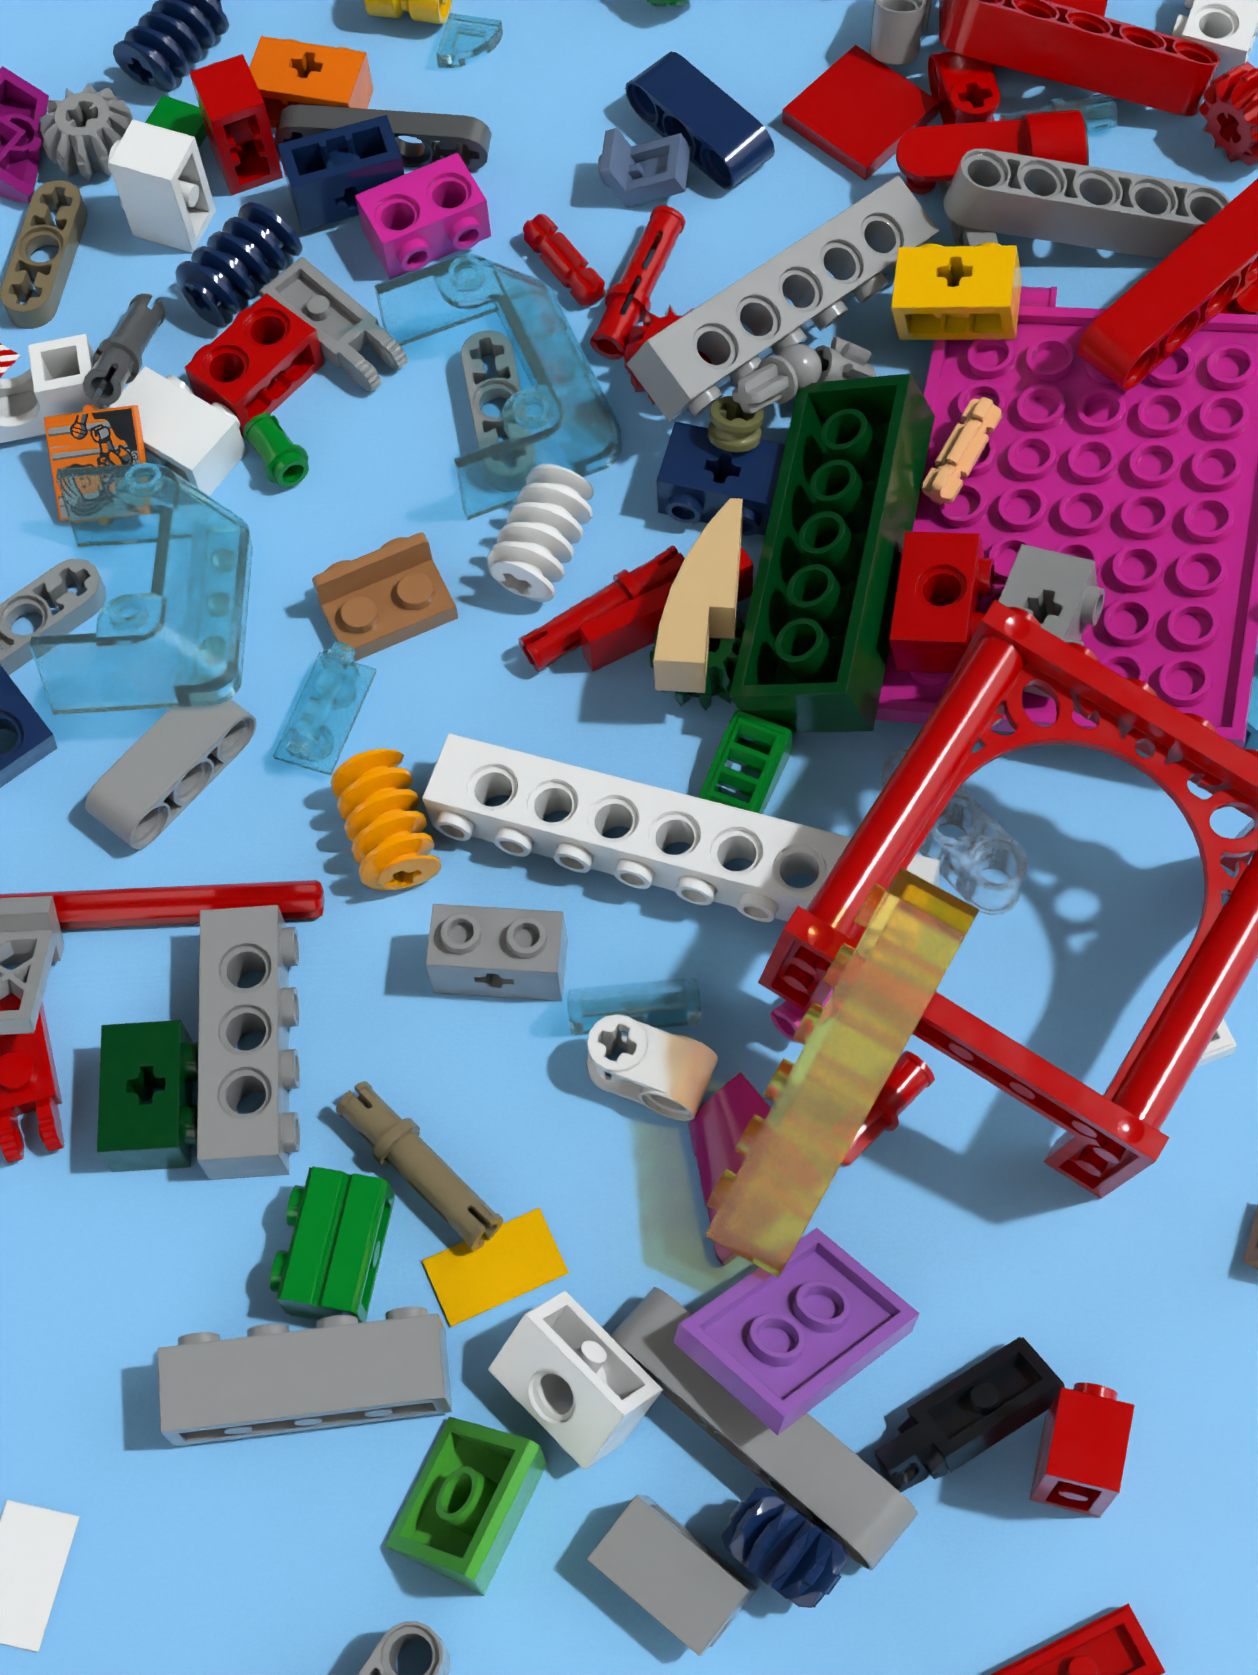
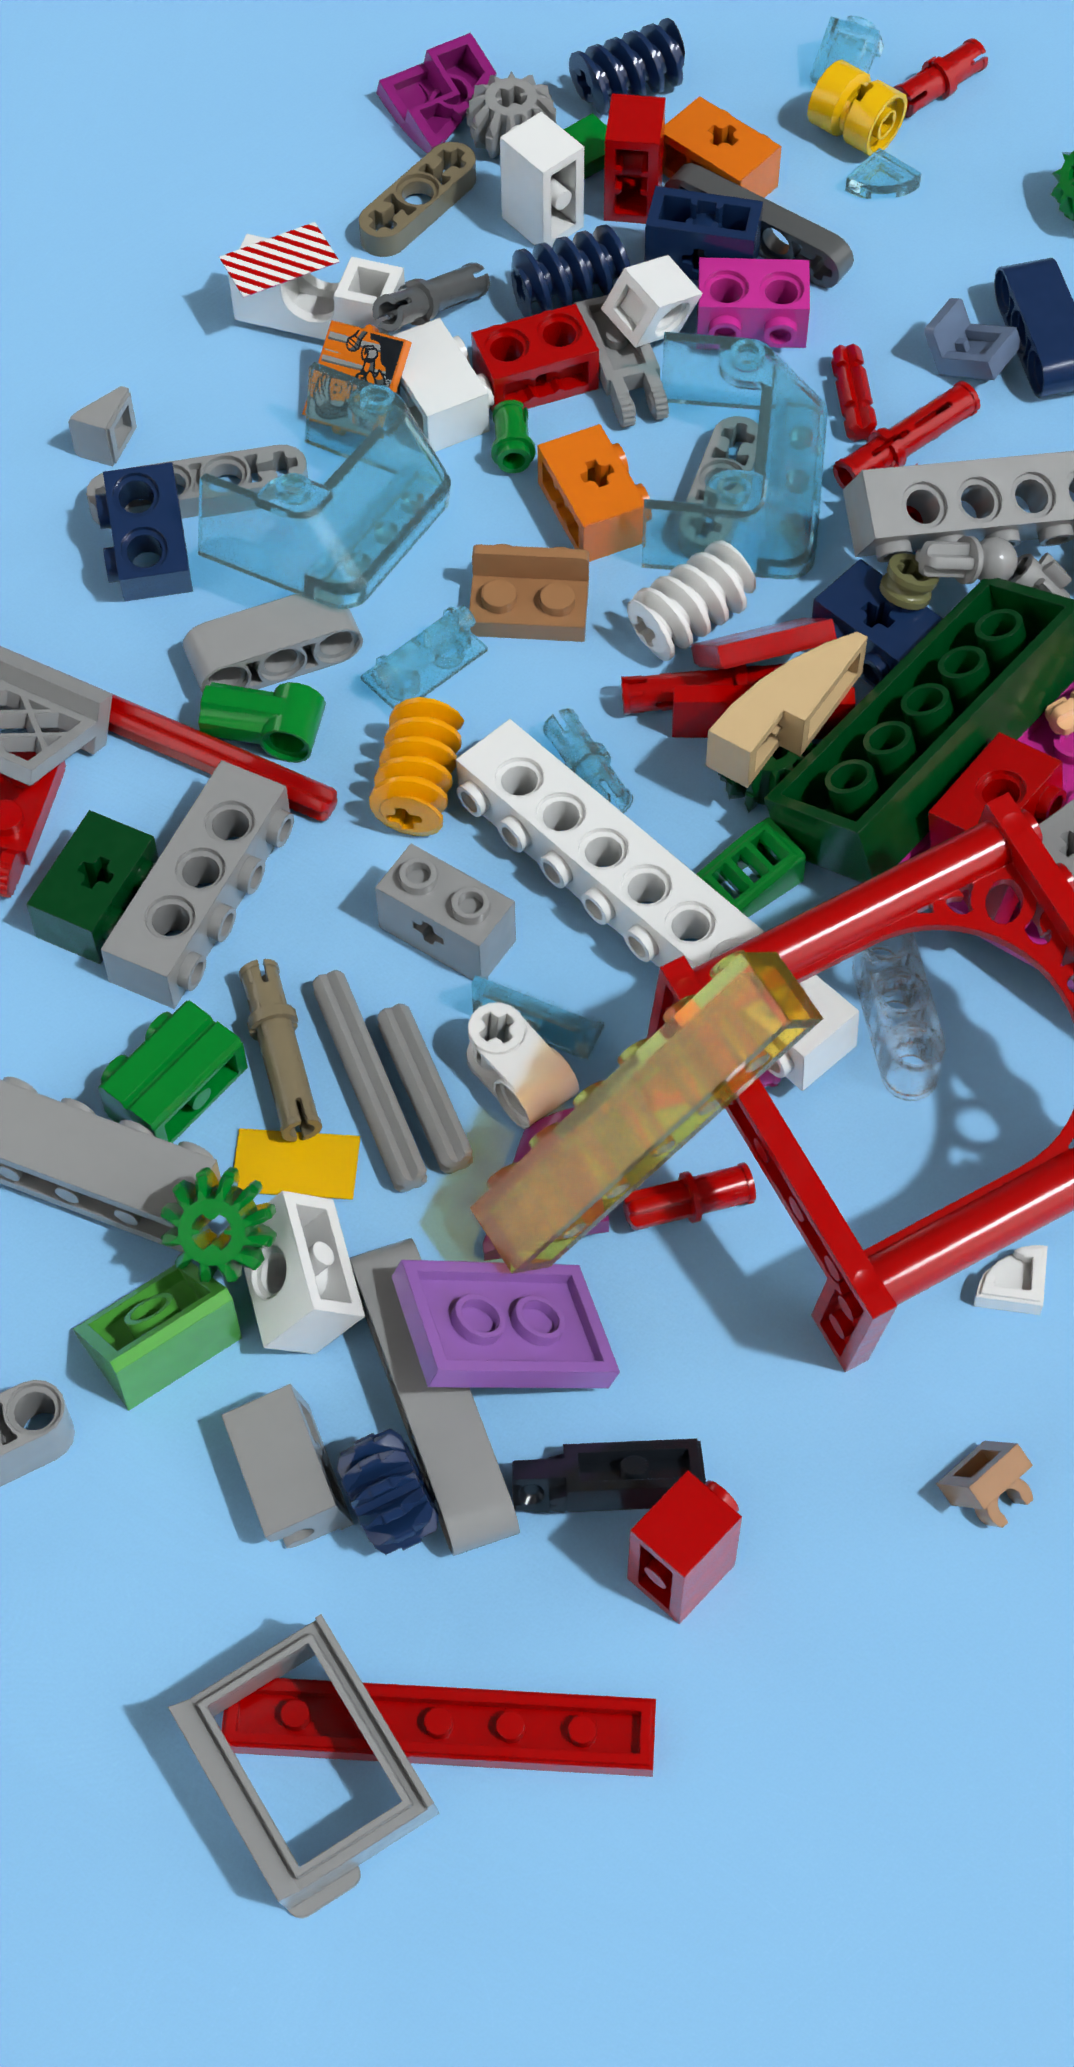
camera: 25 degrees right, 5 degrees down
(223, 839) = (279, 720): none -> green piece
(336, 258) = (651, 300): none -> white brick
(386, 470) = (592, 491): none -> orange brick
(497, 1400) = (232, 1247): none -> green gear
(519, 1151) = (370, 1081): none -> light grey axle
(533, 733) = (586, 758): none -> clear light blue pin
(574, 1131) = (425, 1089): none -> light grey axle
(635, 544) = (763, 643): none -> red tile

